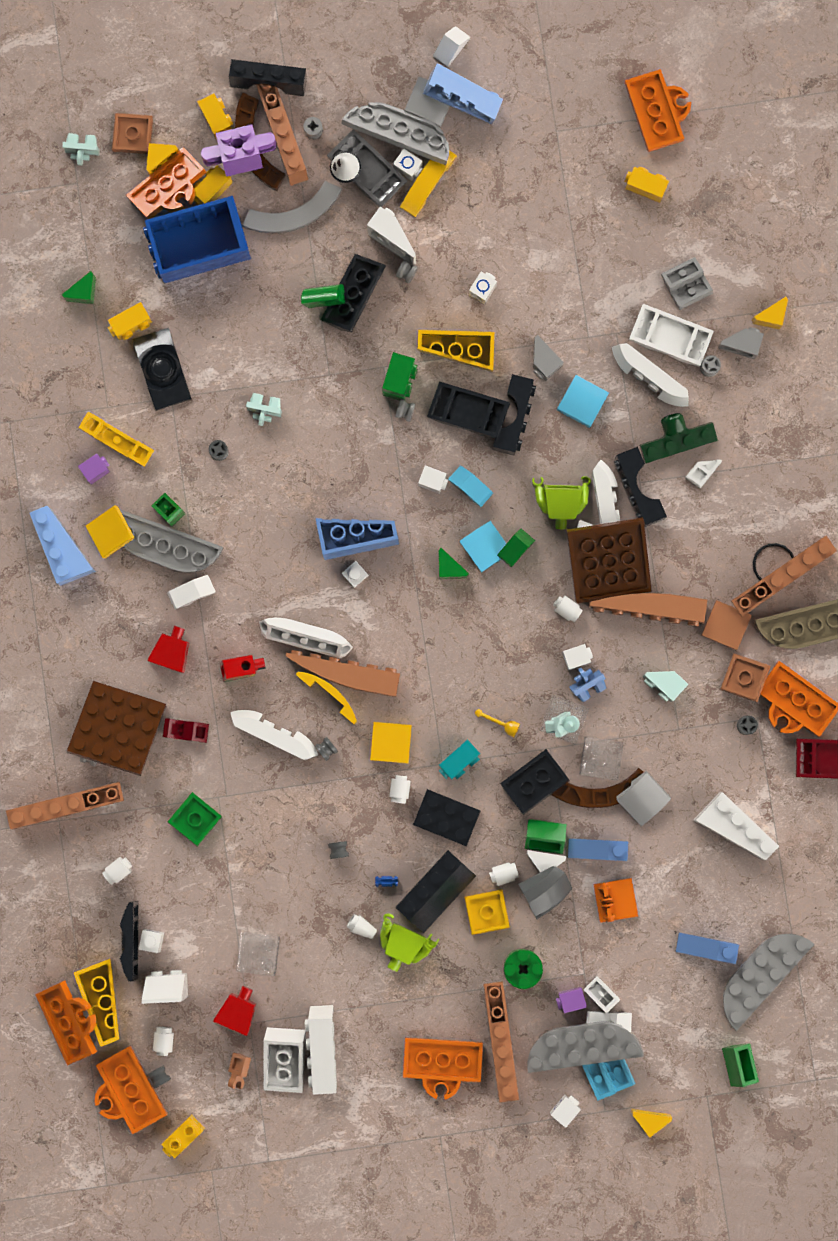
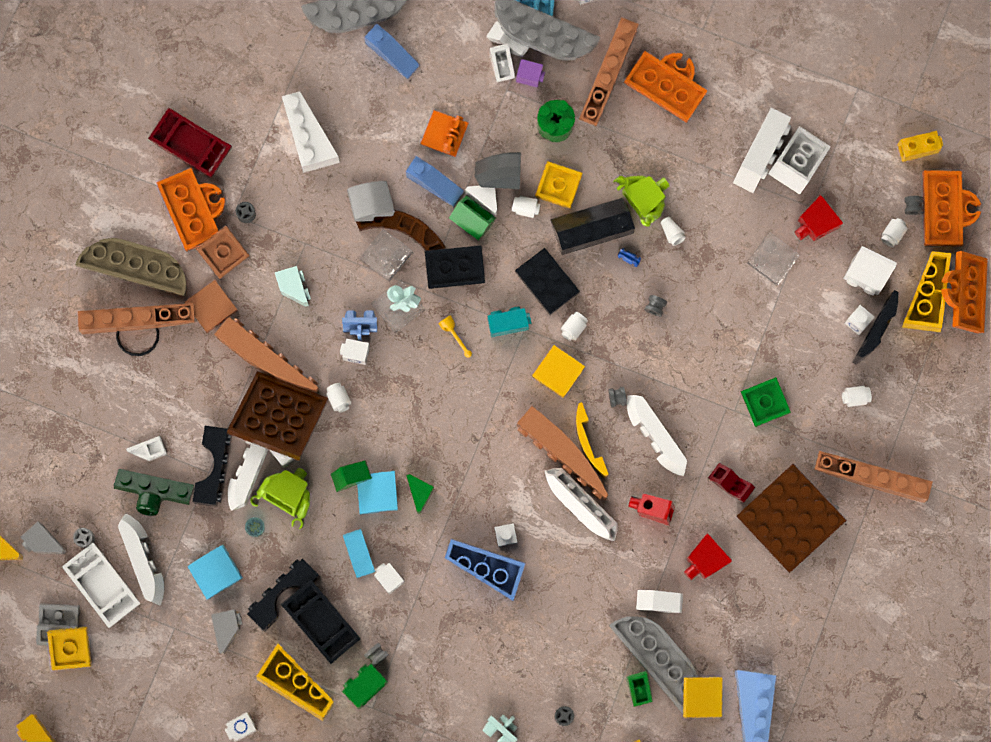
camera: 155 degrees left, 5 degrees down
(238, 1067) = (841, 174): nougat plate -> none
(572, 458) = (255, 527): none -> clear light blue tile
(665, 269) = (69, 648): none -> yellow tile

